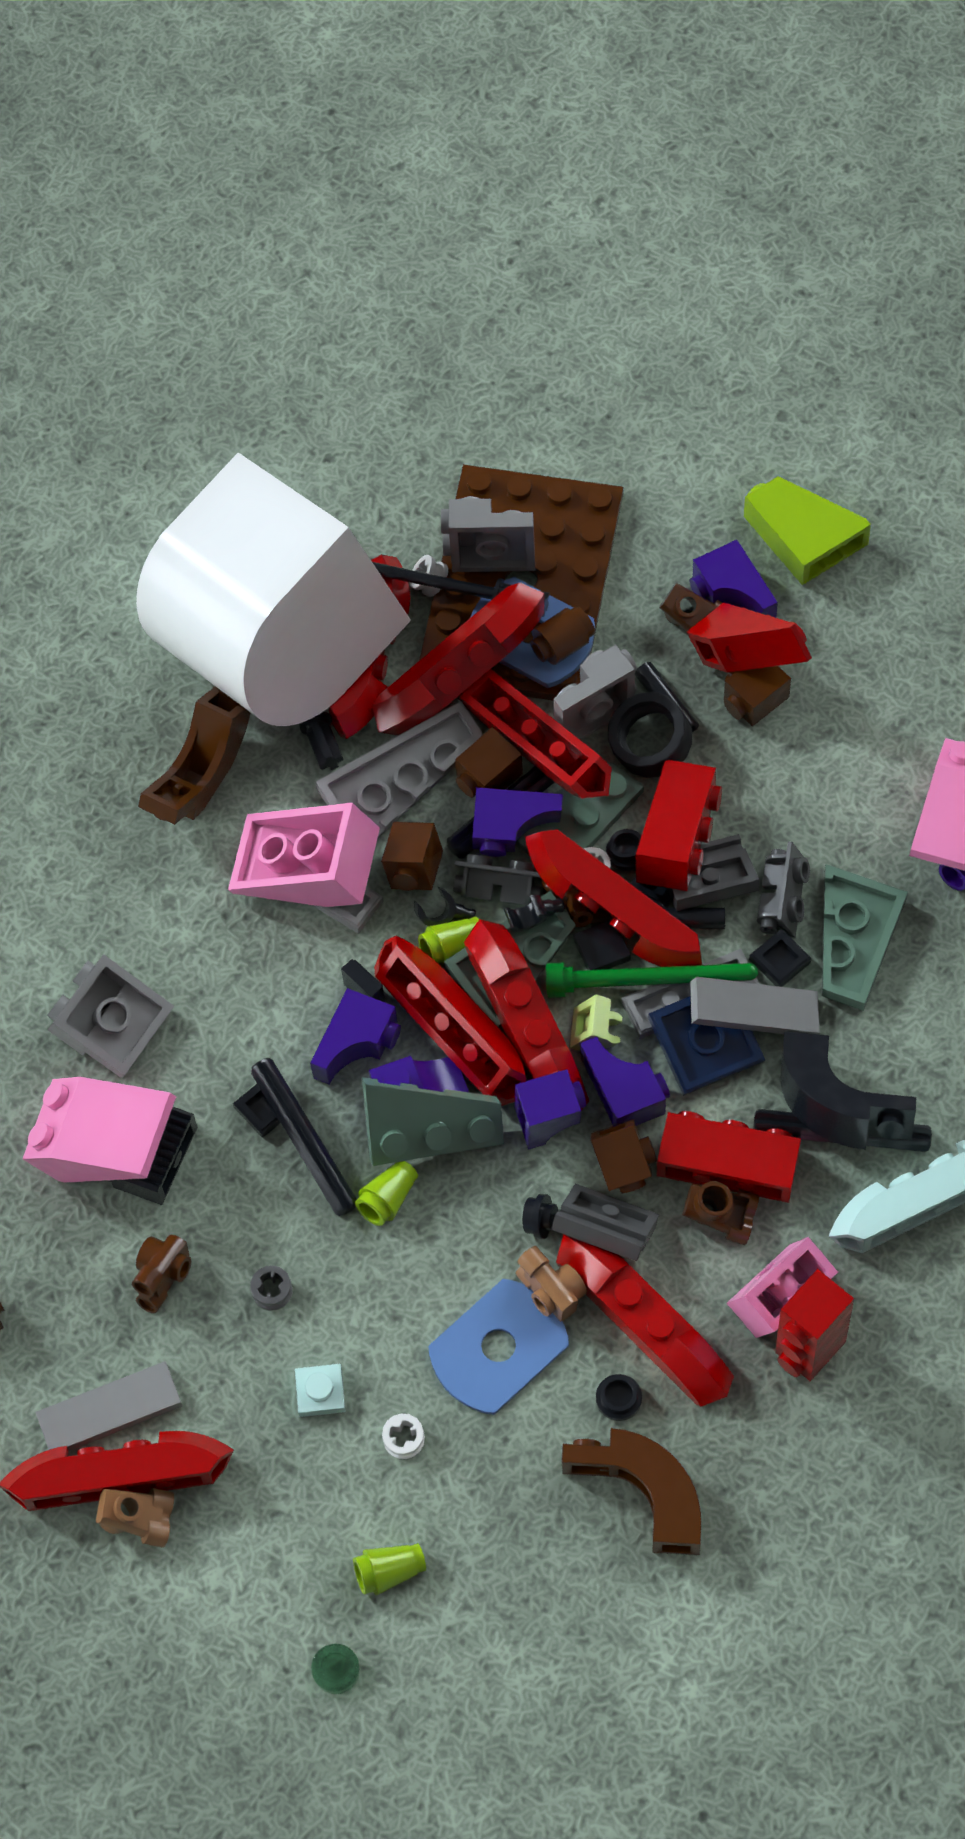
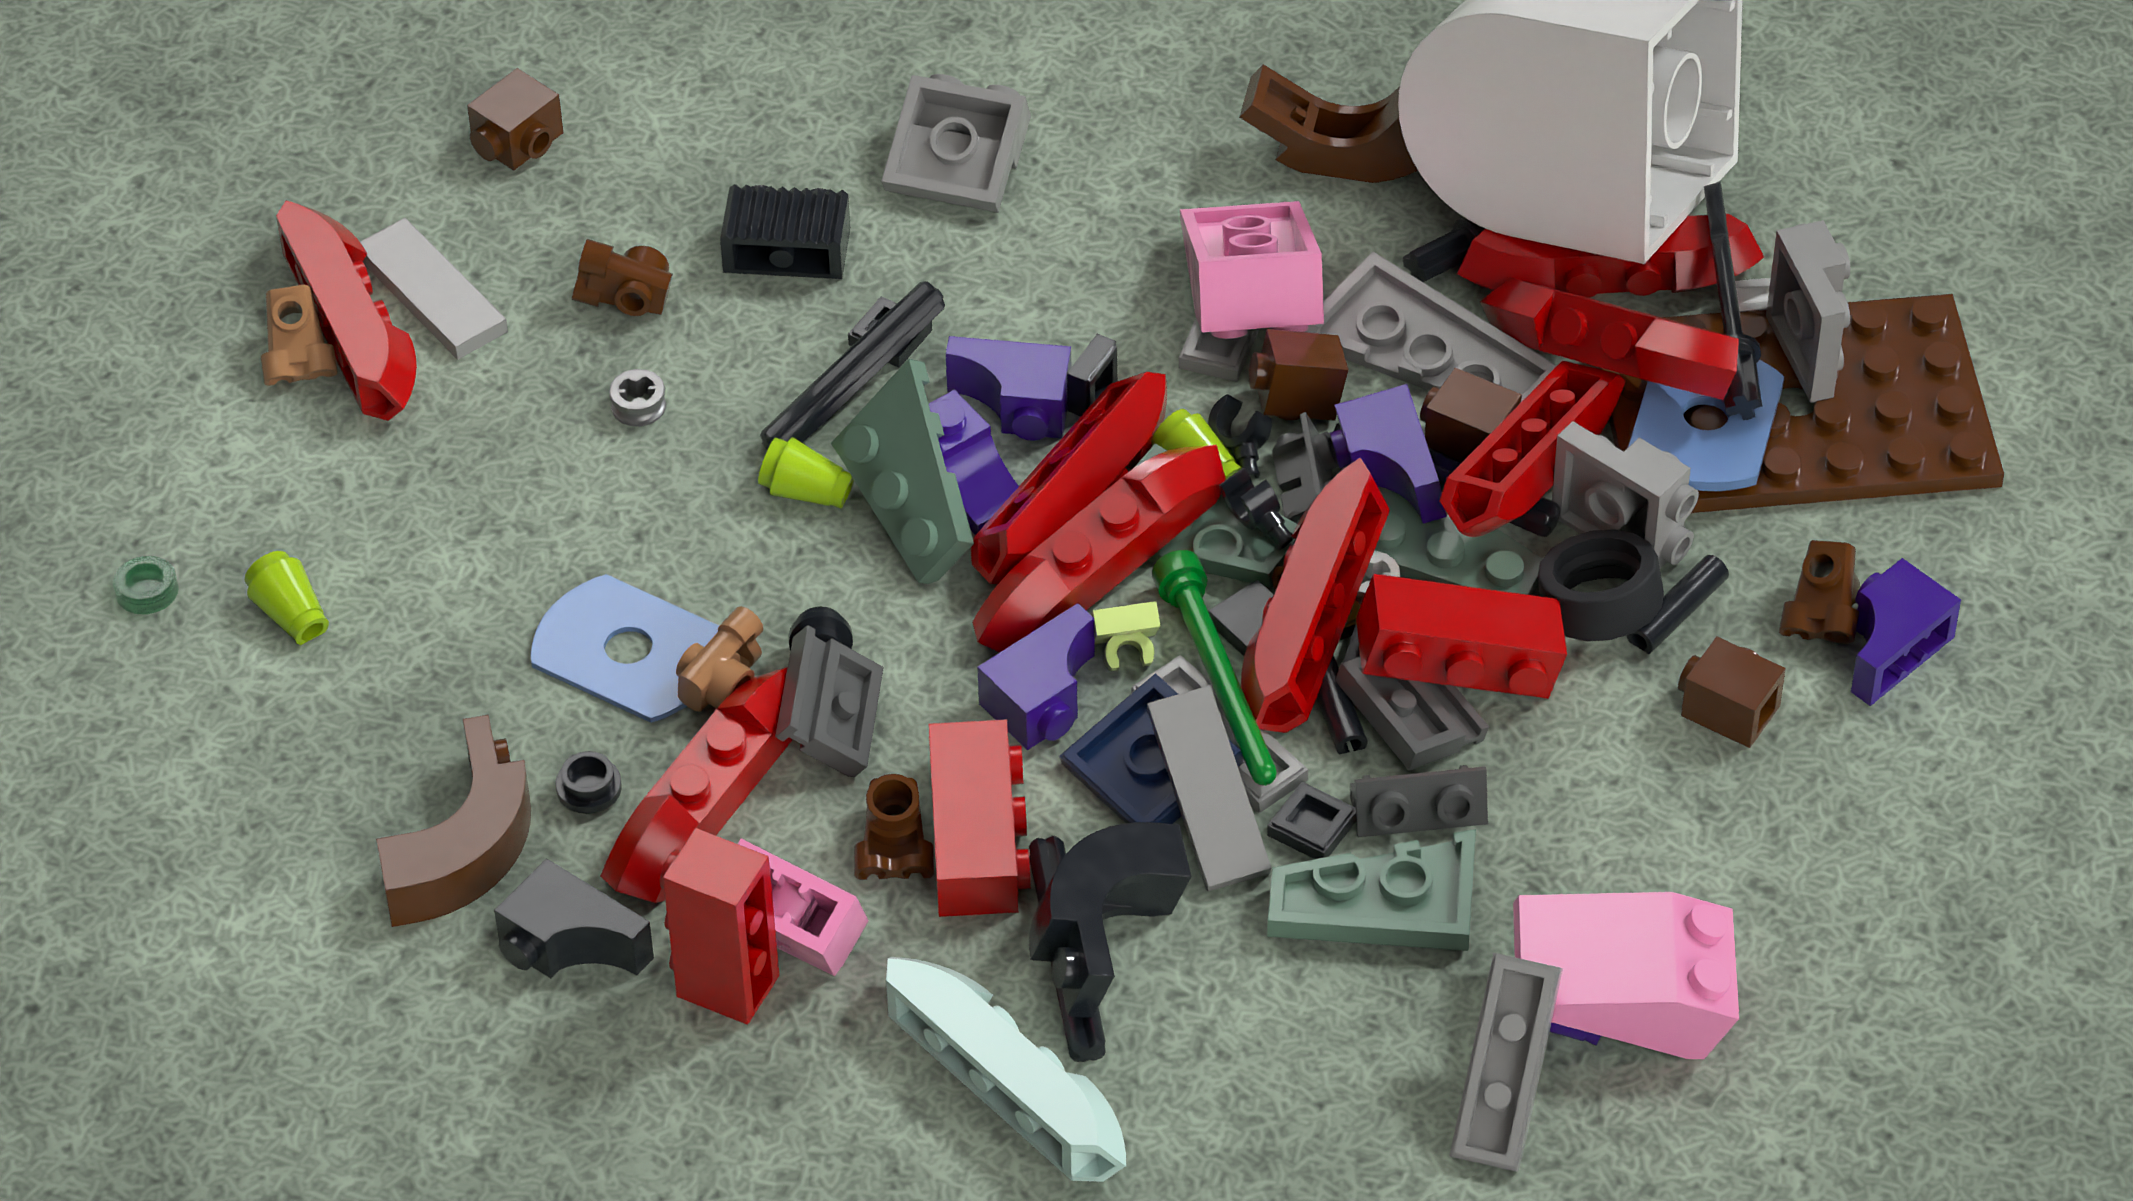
camera: 70 degrees right, 15 degrees down
(97, 1130) = (778, 144): bright pink slope -> none
(320, 1390) = (512, 480): light aqua plate -> none
(396, 1424) = (474, 591): white bush -> none
(548, 1106) = (957, 573): dark purple arch -> none
(562, 635) = (1698, 431): reddish brown brick -> none
(623, 1156) = (927, 688): reddish brown brick -> none
(741, 1437) = (565, 922): none -> arch
(747, 640) = (1788, 630): red slope -> none
(804, 527) = (2028, 689): lime slope -> none

